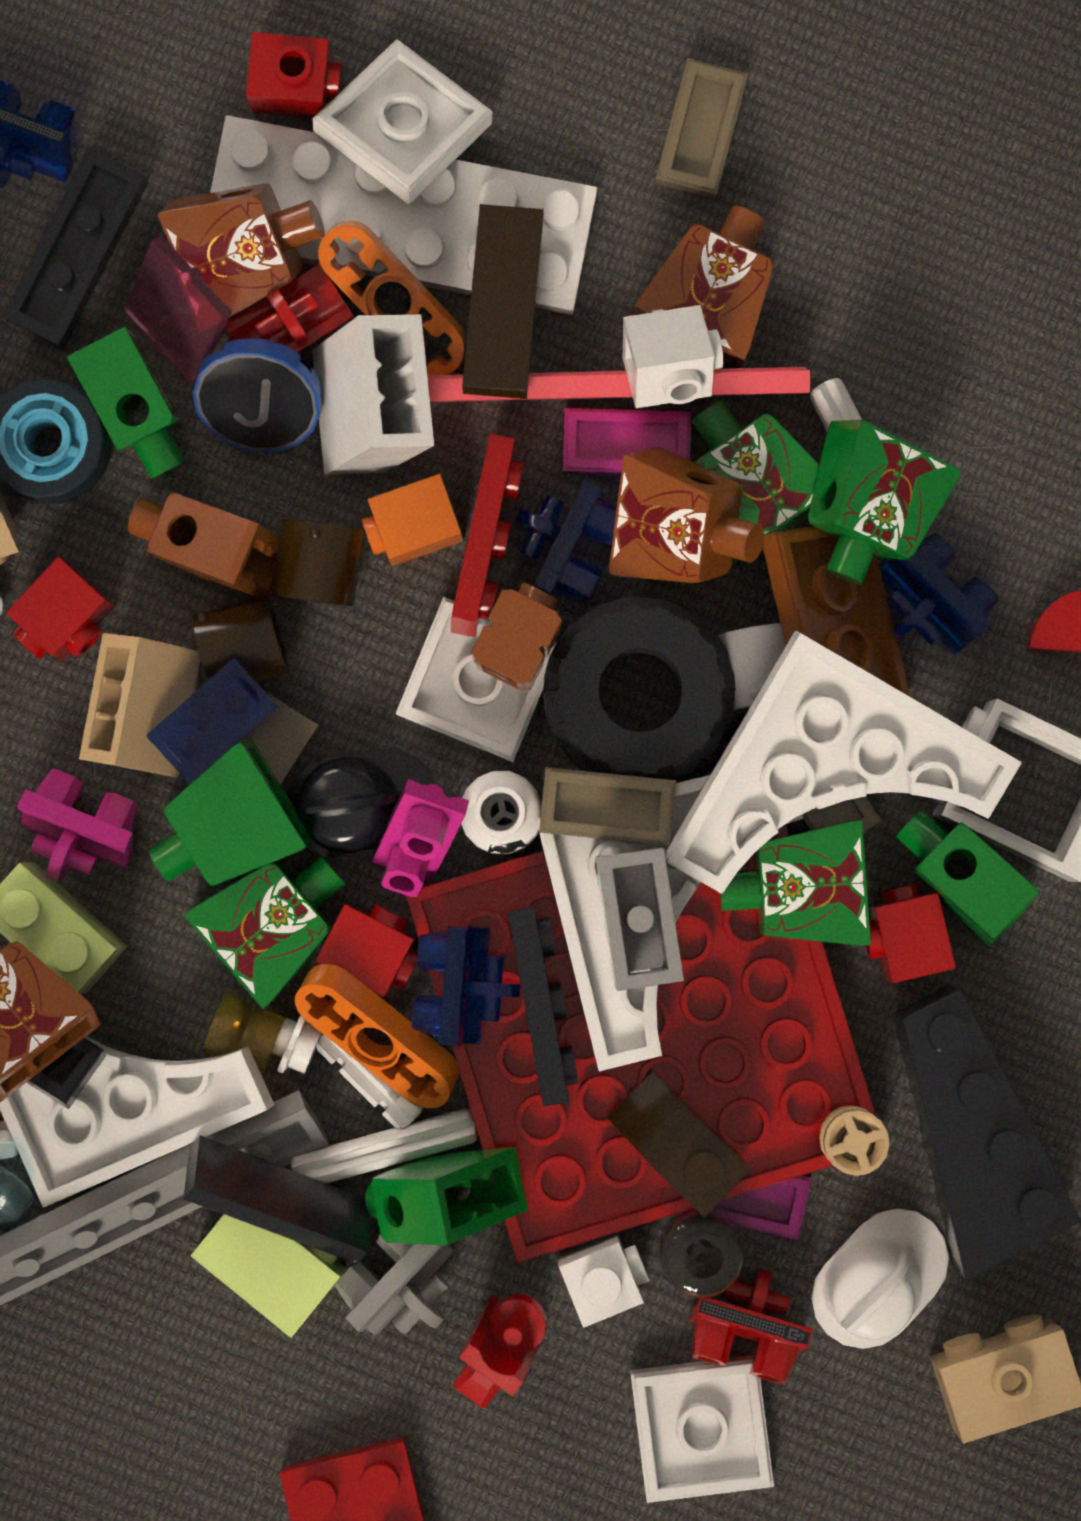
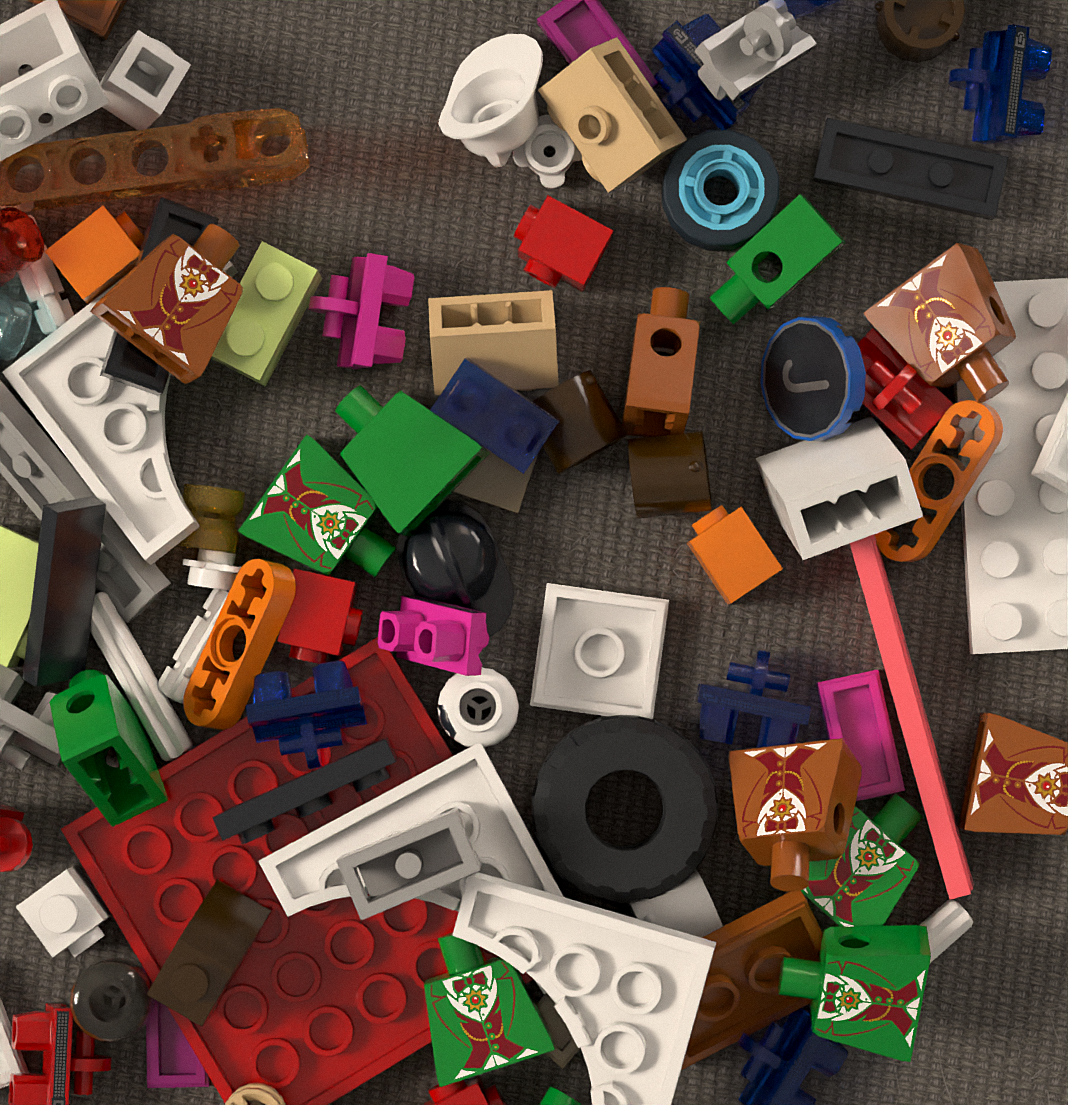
camera: 80 degrees right, 0 degrees up
(176, 308) = (875, 281): clear pink piece -> none
(487, 536) = (735, 628): red plate -> none
(503, 301) = (960, 587): dark brown tile -> none
(518, 636) = (650, 683): dark orange brick -> none
(607, 806) = (507, 806): dark tan tile -> none
(670, 356) = (947, 759): white brick -> none

